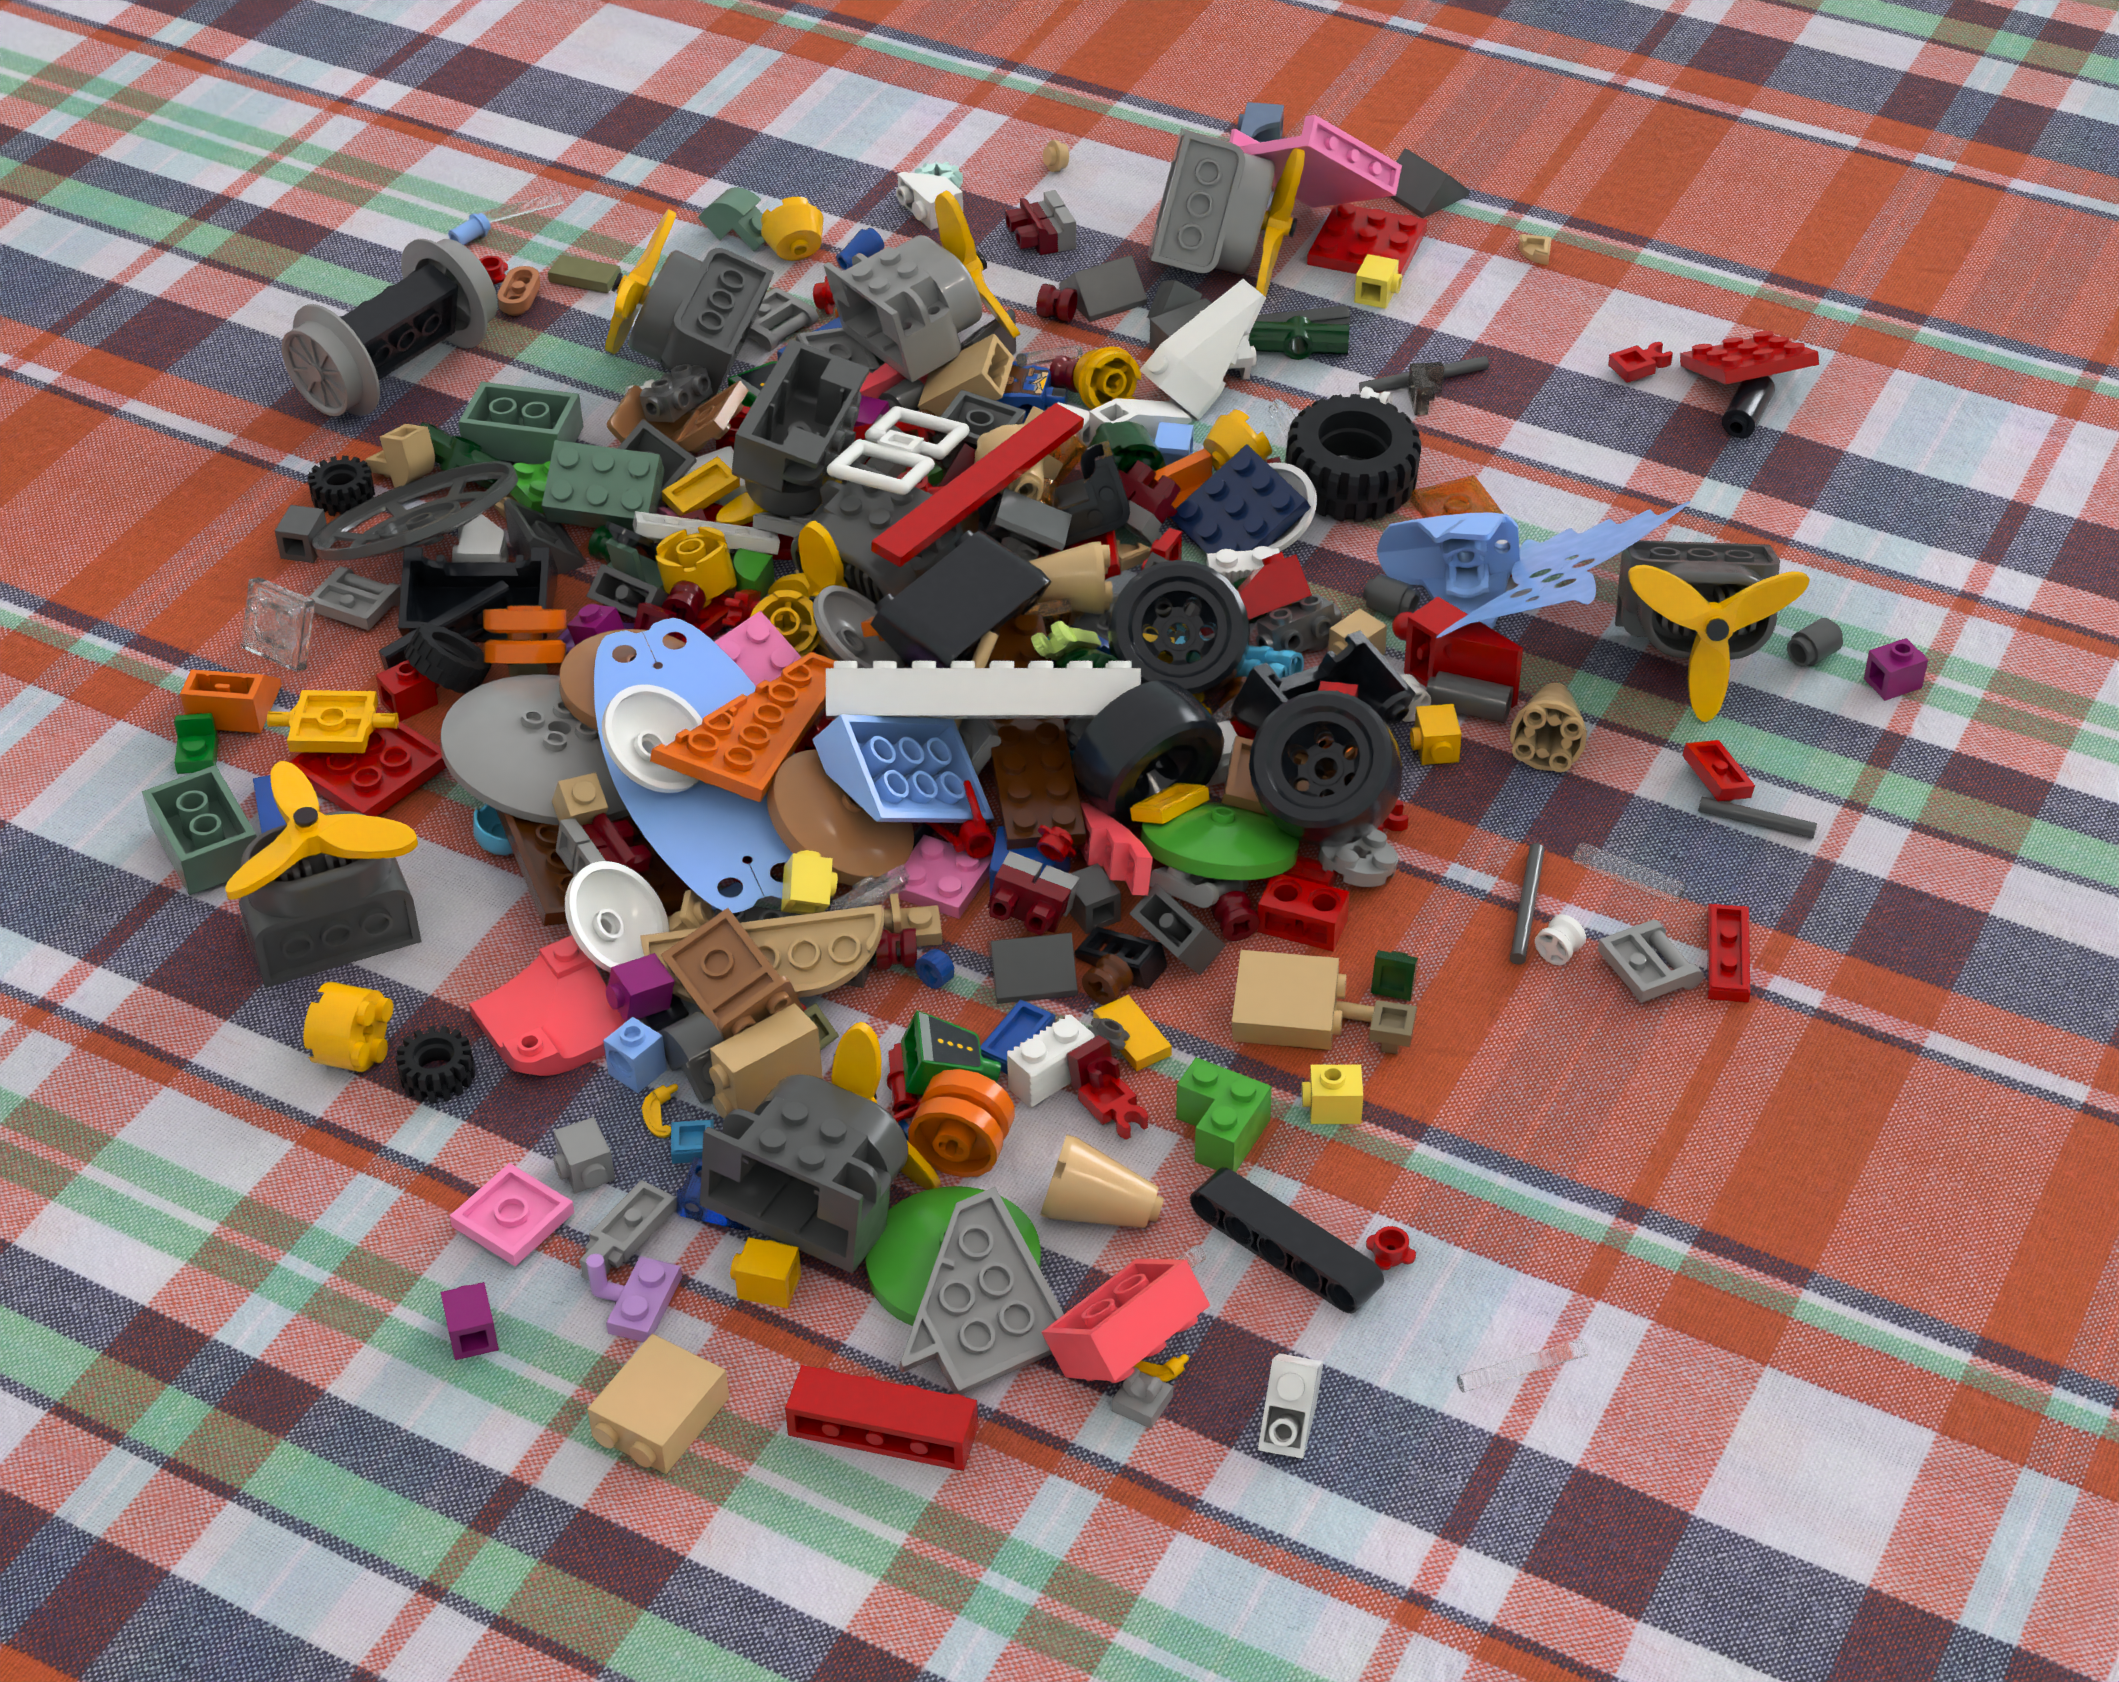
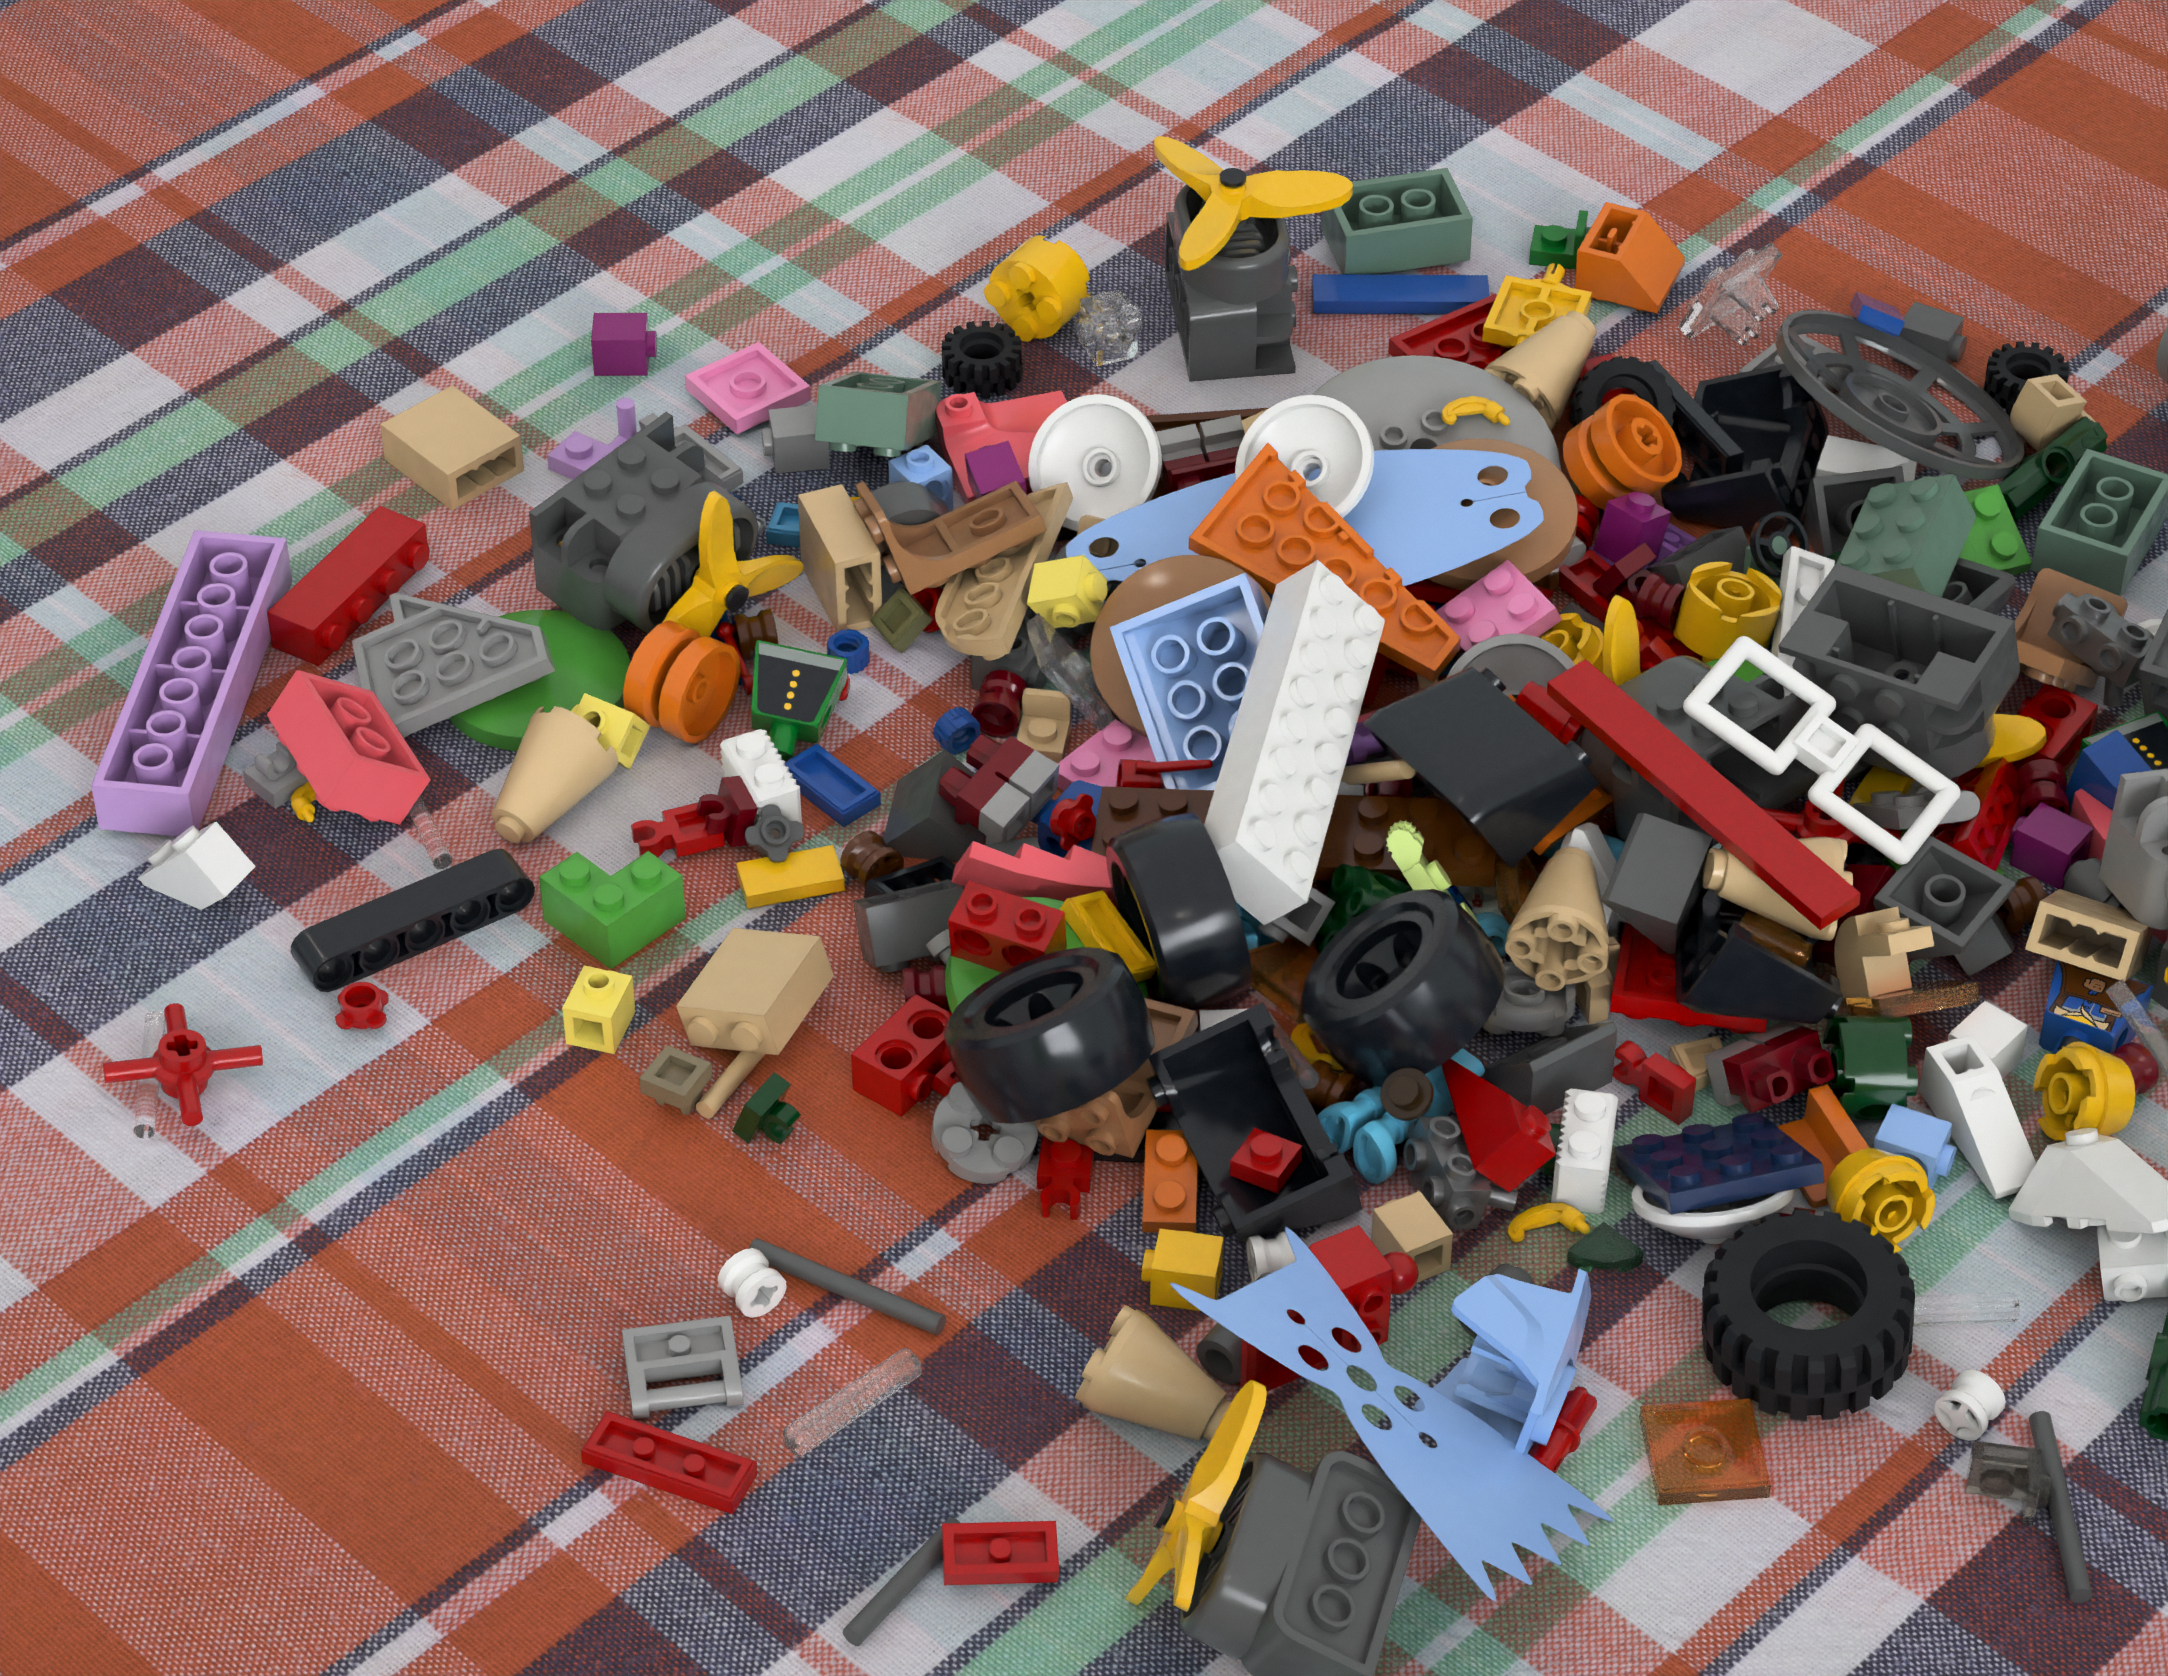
camera: 105 degrees right, 0 degrees up
(297, 544) = (1877, 314): none -> blue tile
(385, 974) = (1109, 327): none -> clear brick
(417, 693) = (1548, 364): none -> tan cone
(511, 697) = (1474, 405): none -> yellow piece
(569, 1076) = (877, 412): none -> sand green brick
(873, 592) = (1548, 713): none -> red cone
(1024, 1169) = (617, 727): none -> light yellow brick
(1065, 1475) = (191, 685): none -> lavender brick
(1227, 818) = (1003, 928): none -> red brick
(1263, 631) = (1407, 1094): none -> dark brown plate
(1317, 567) = (1605, 1250): none -> clear green tile
(1514, 1331) = (183, 1064): none -> red bar

